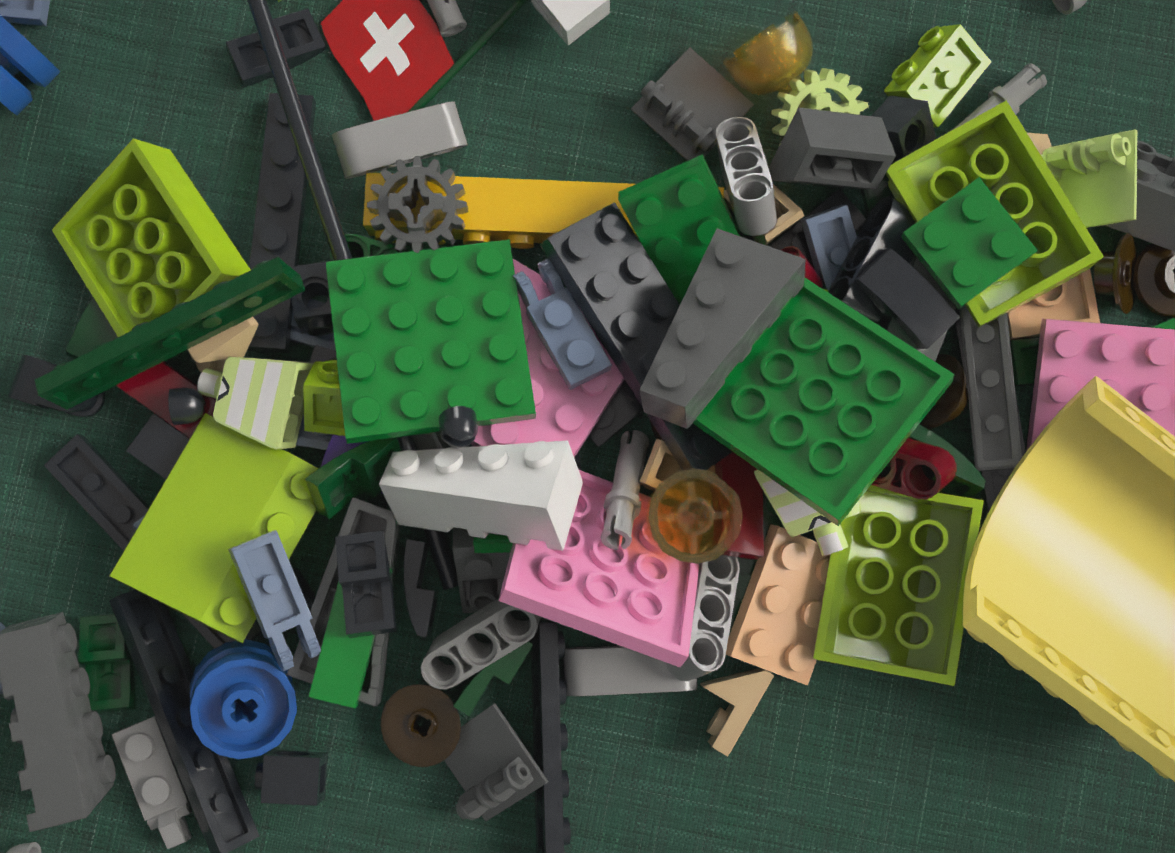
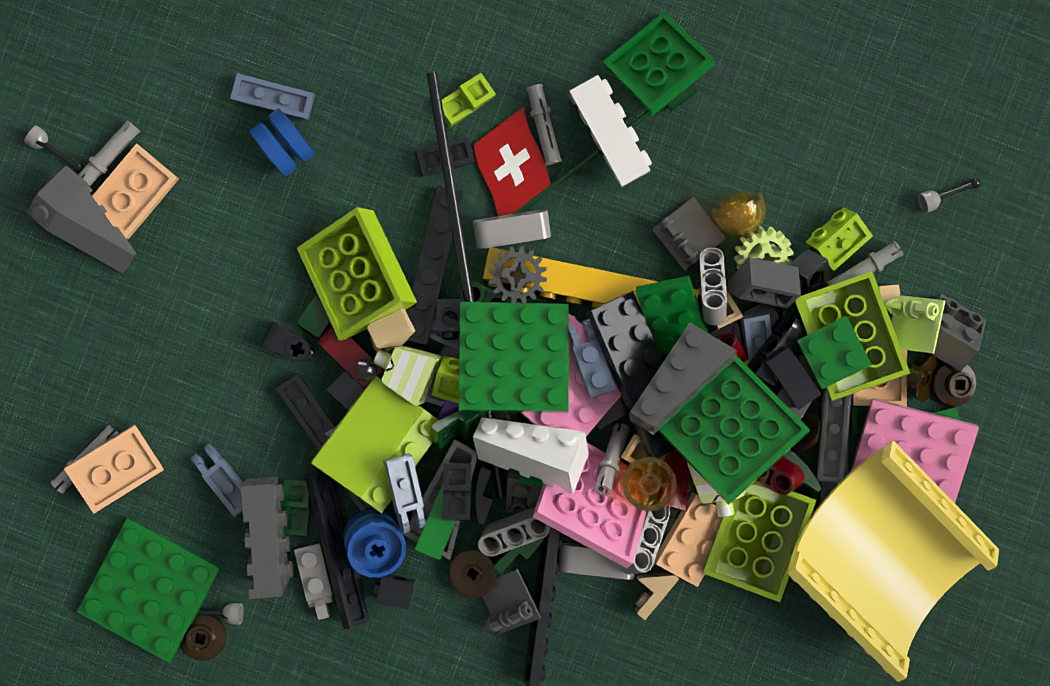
camera: 10 degrees right, 5 degrees up
(170, 333) = (375, 327): dark green plate -> none
(458, 426) = (523, 412): black hinge -> none

